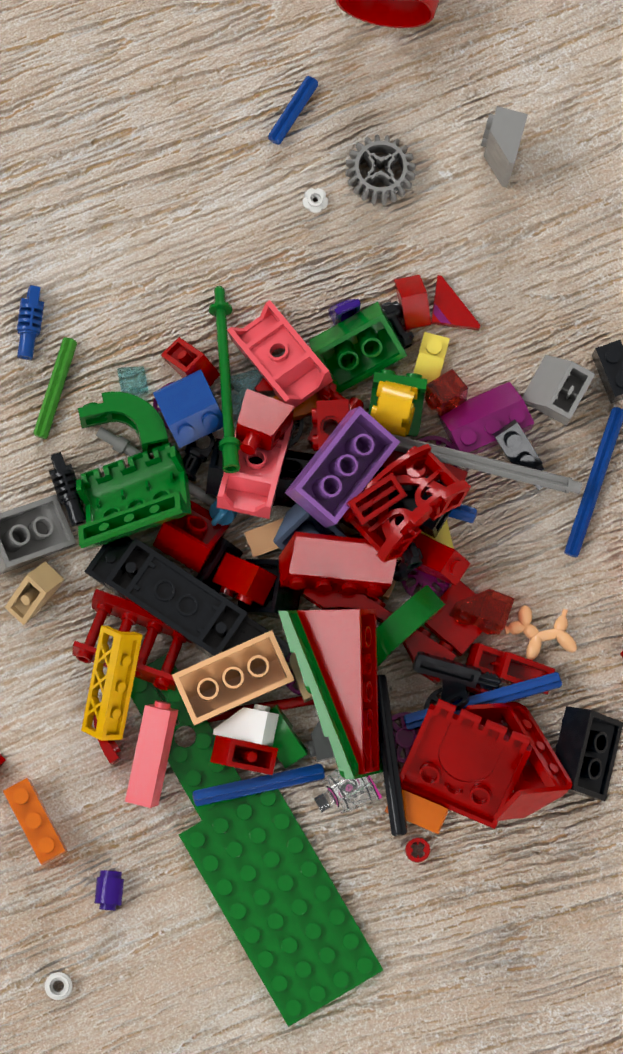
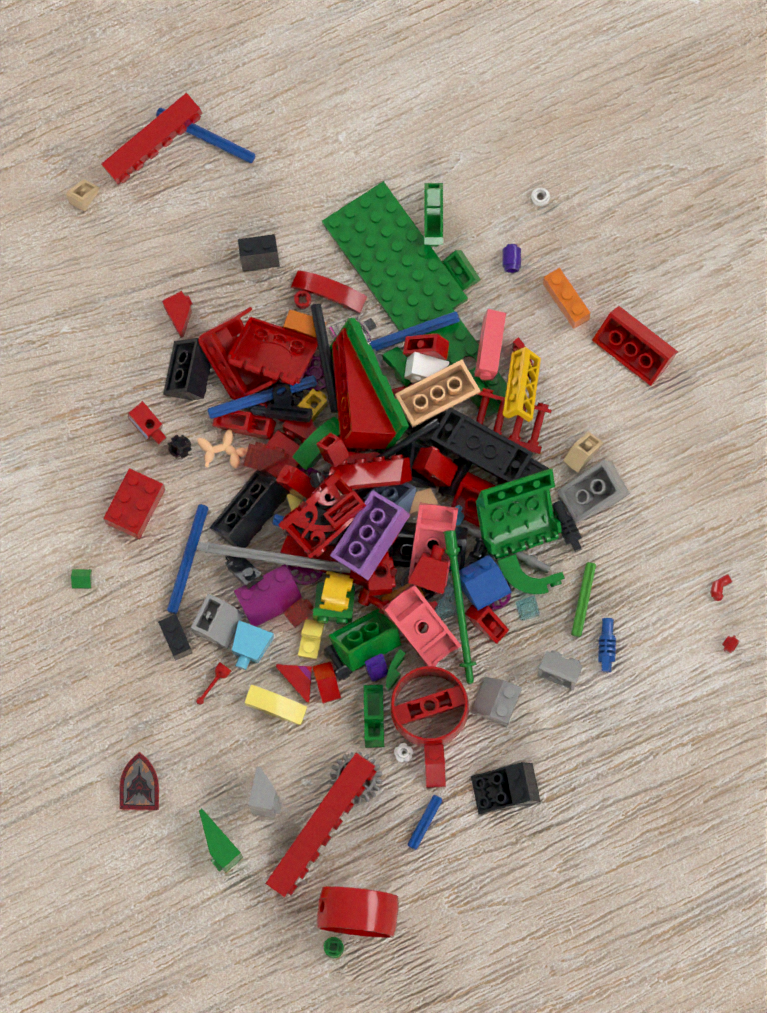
camera: 175 degrees left, 5 degrees down
(96, 289) = (559, 669): none -> light grey slope
(182, 143) = (505, 788): none -> black slope
(183, 880) = (461, 269): none -> green slope
(185, 257) = (496, 700): none -> light grey slope
(218, 962) = (433, 214): none -> green arch
(273, 616) = (410, 439): none -> black bar
(274, 181) = (435, 766): none -> red slope
(295, 243) = (443, 701): none -> red cylinder
(321, 301) = (393, 675): none -> green slope
(351, 250) = (373, 716): none -> green slope
(379, 860) = (329, 289): none -> red slope
(387, 601) = (333, 449): none -> red brick
(417, 681) = (314, 397): none -> yellow brick
(429, 105) = (321, 824): none -> red brick
(479, 918) = (258, 252): none -> black brick
(483, 272) = (275, 705): none -> light yellow slope
(509, 540) = (250, 509): none -> black slope
(513, 356) = (250, 644): none -> medium azure torso
(553, 323) = (221, 672): none -> red hinge
(563, 88) = (221, 849): none -> green slope
(597, 841) = (179, 311): none -> red slope
(602, 639) = (179, 446): none -> black gear

